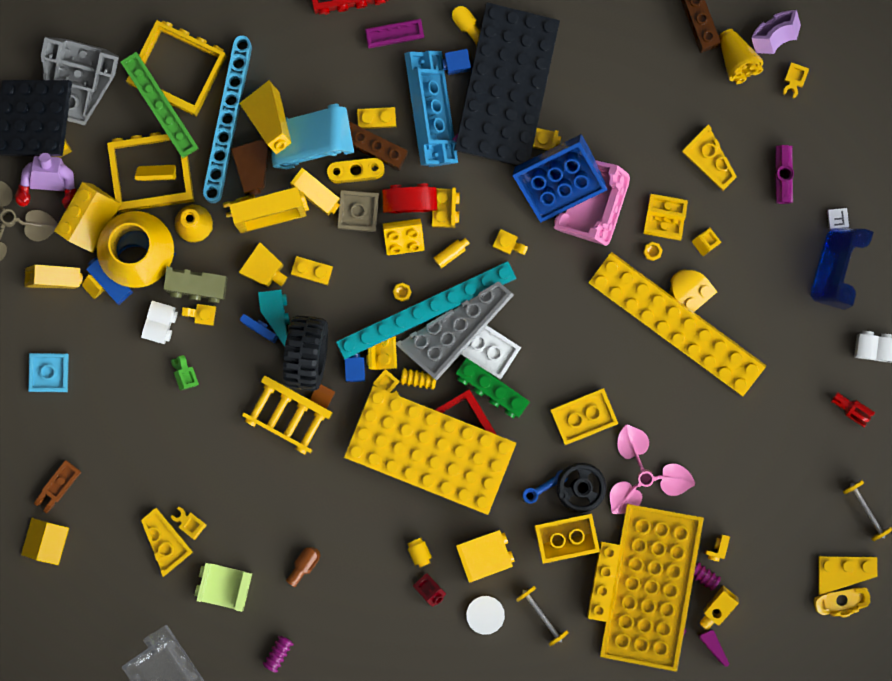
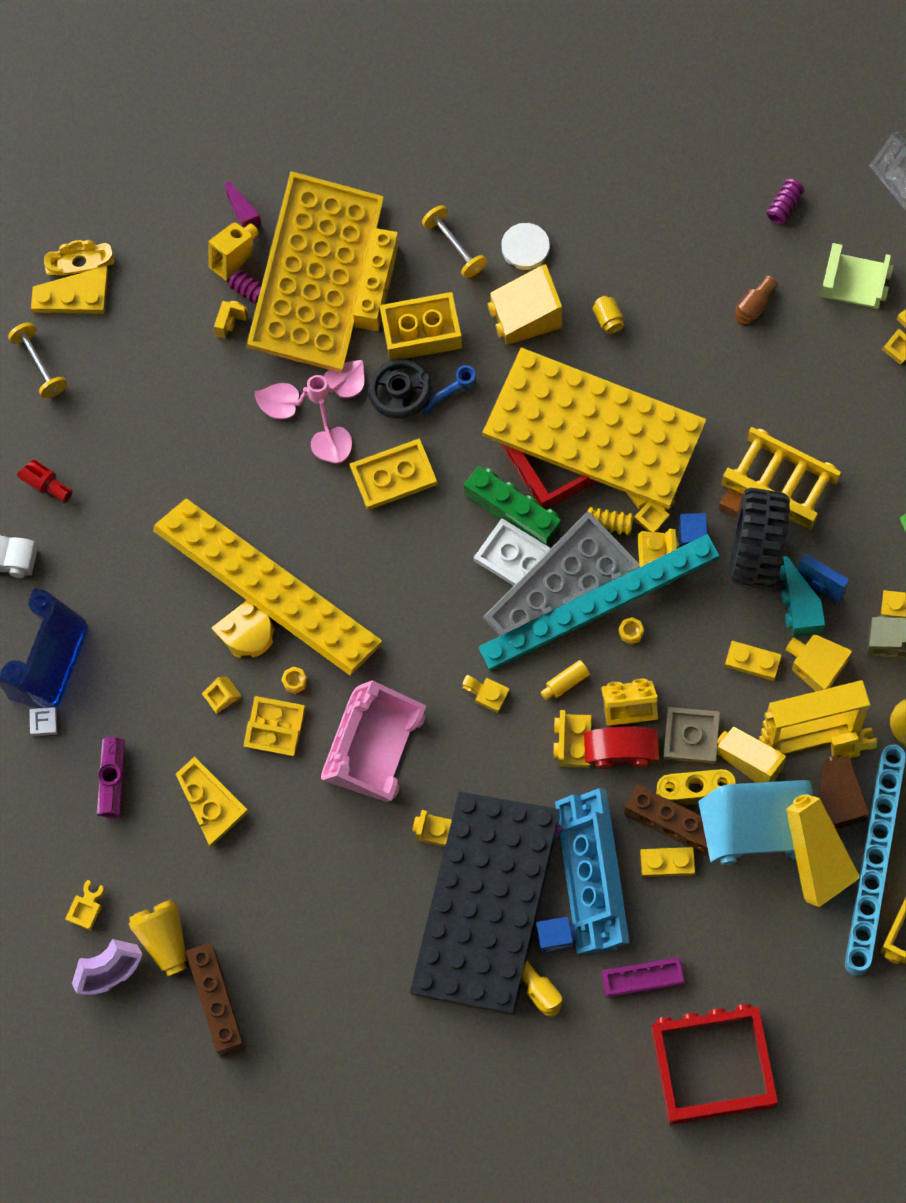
camera: 170 degrees left, 15 degrees down
(429, 590) = (595, 272): dark red bracket -> none
(560, 178) = (416, 769): blue slope -> none

